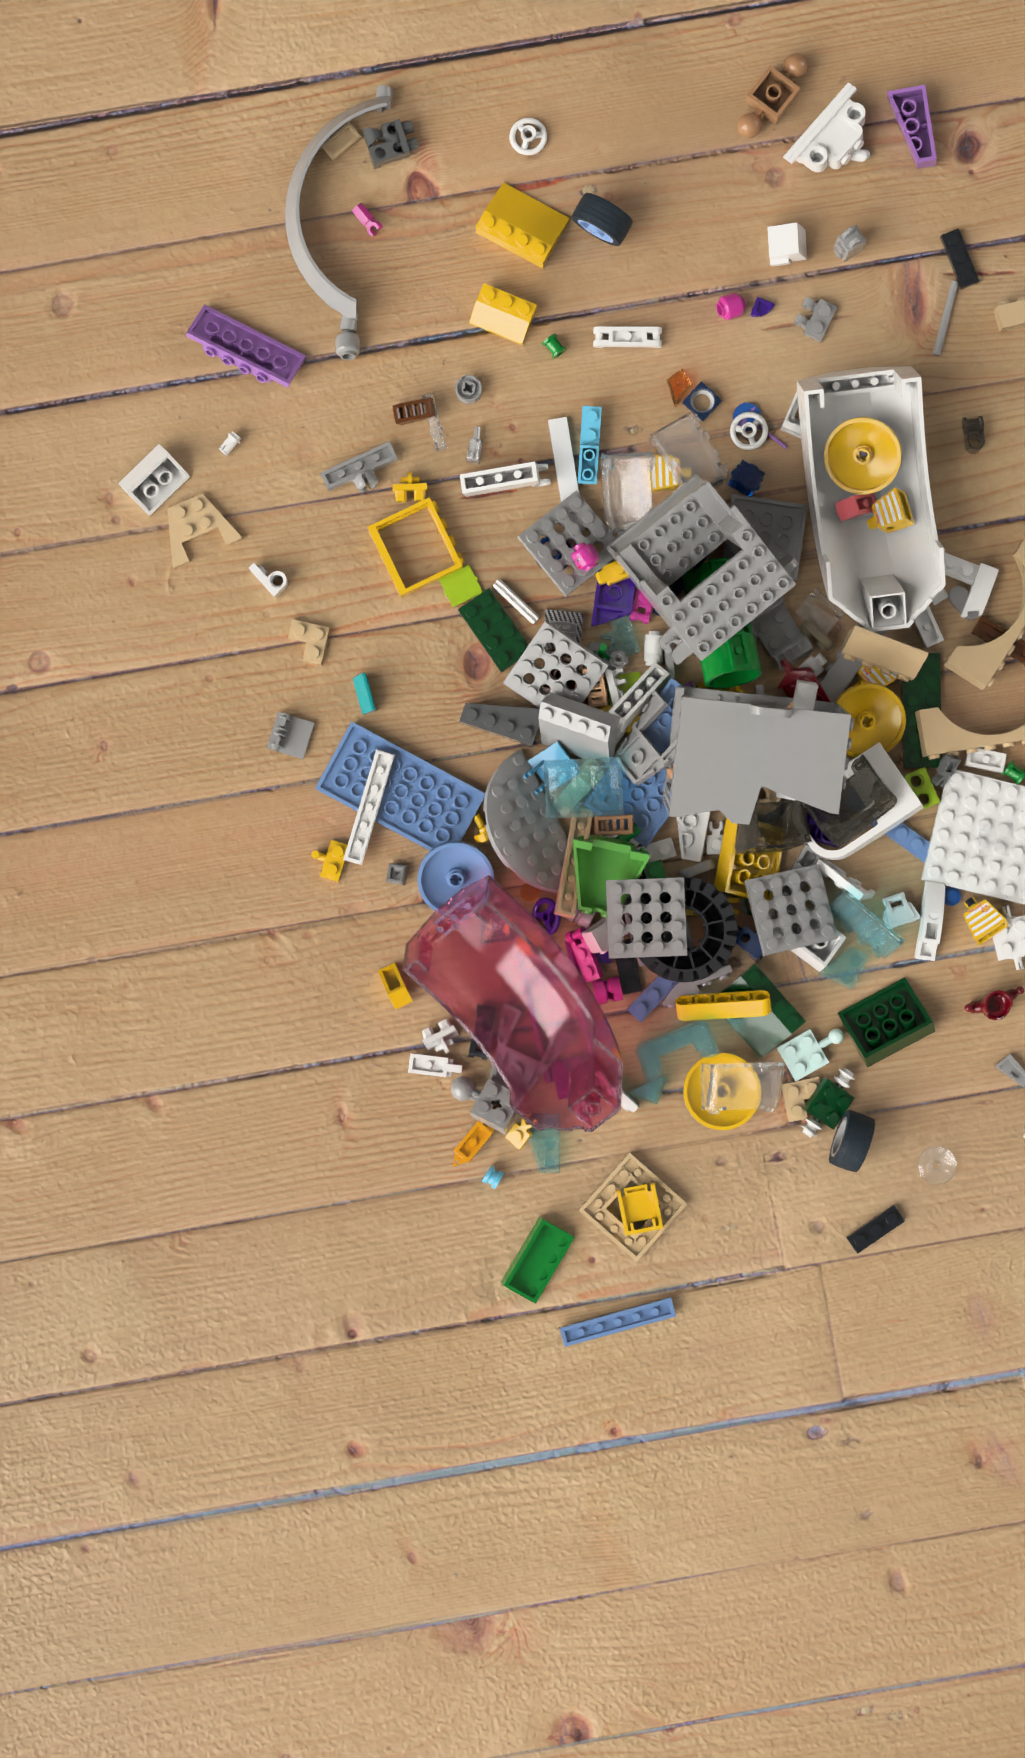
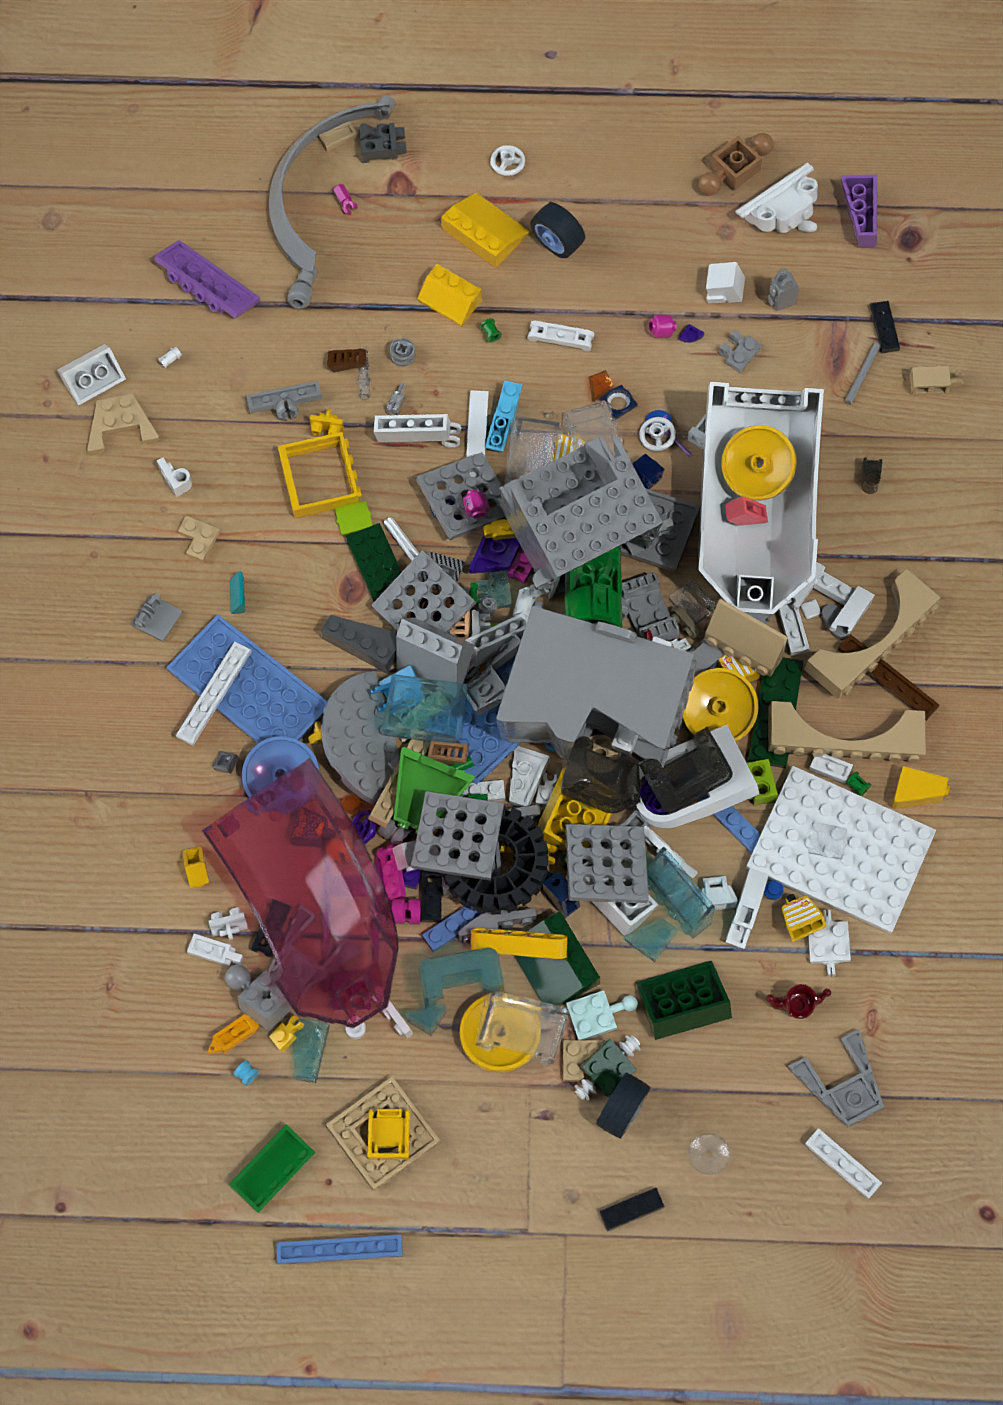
camera: 10 degrees right, 20 degrees down
(332, 860) = (166, 739): yellow plate -> none
(891, 512) = (778, 520): yellow torso -> none
(946, 768) = (789, 762): dark grey plate -> none

